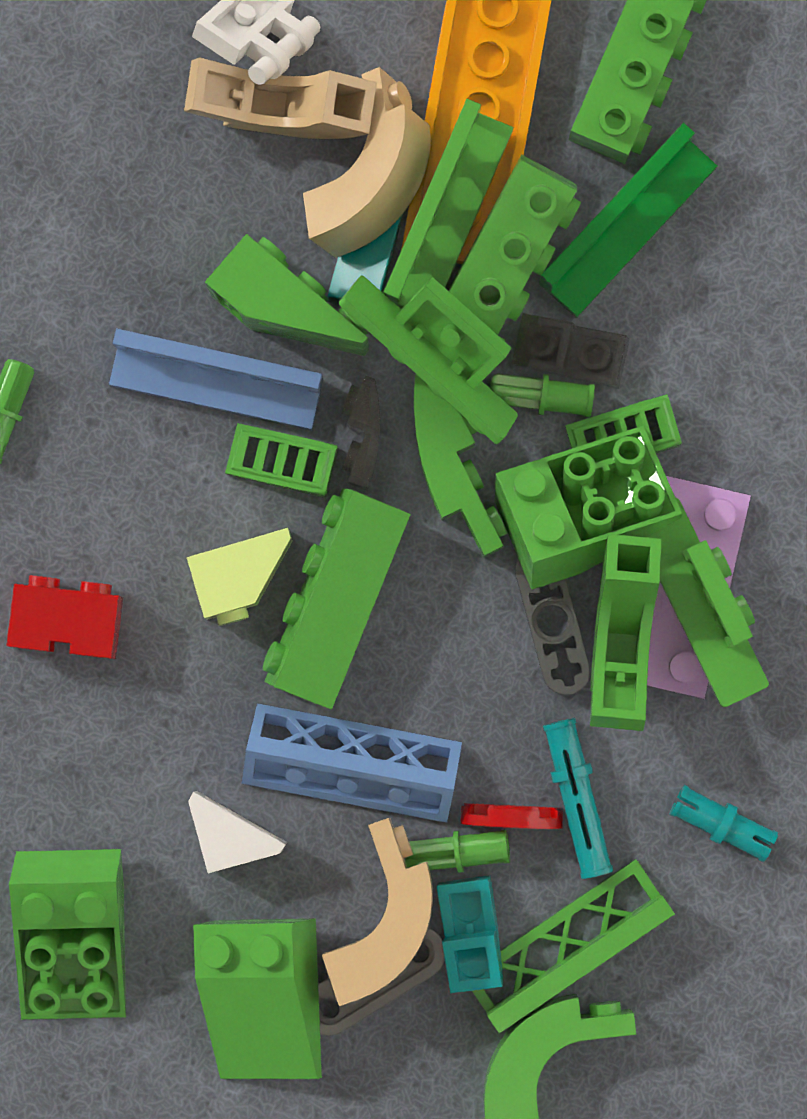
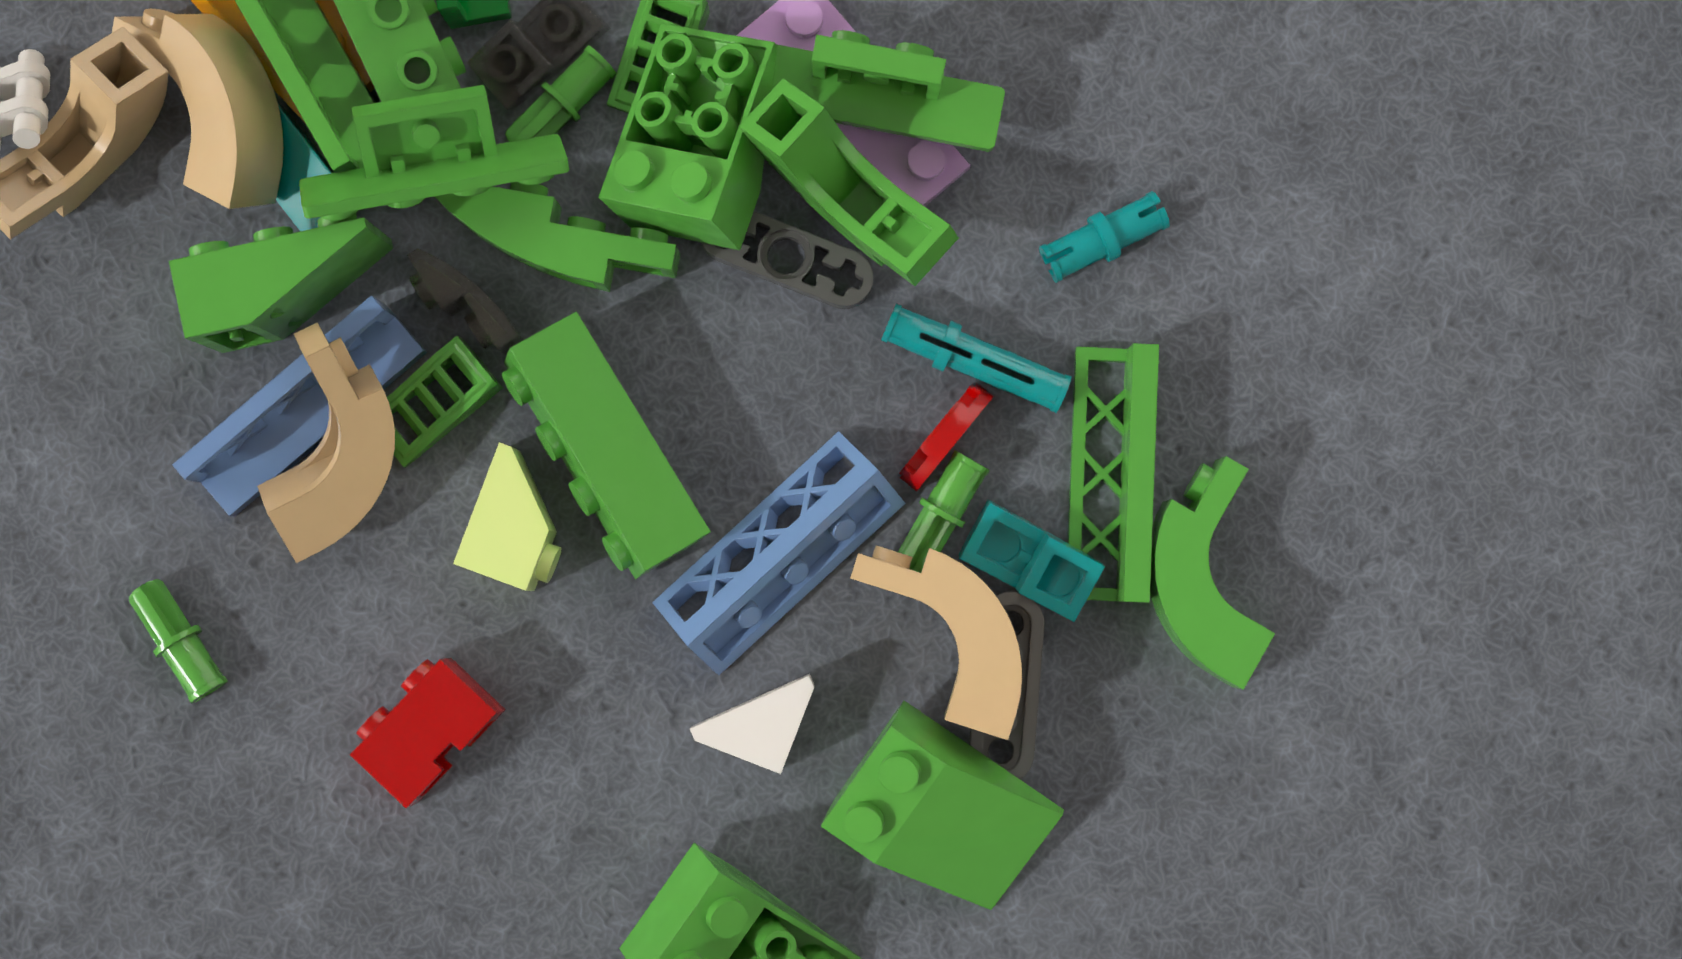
camera: 60 degrees left, 0 degrees up
(205, 440) = (348, 470): none -> tan arch

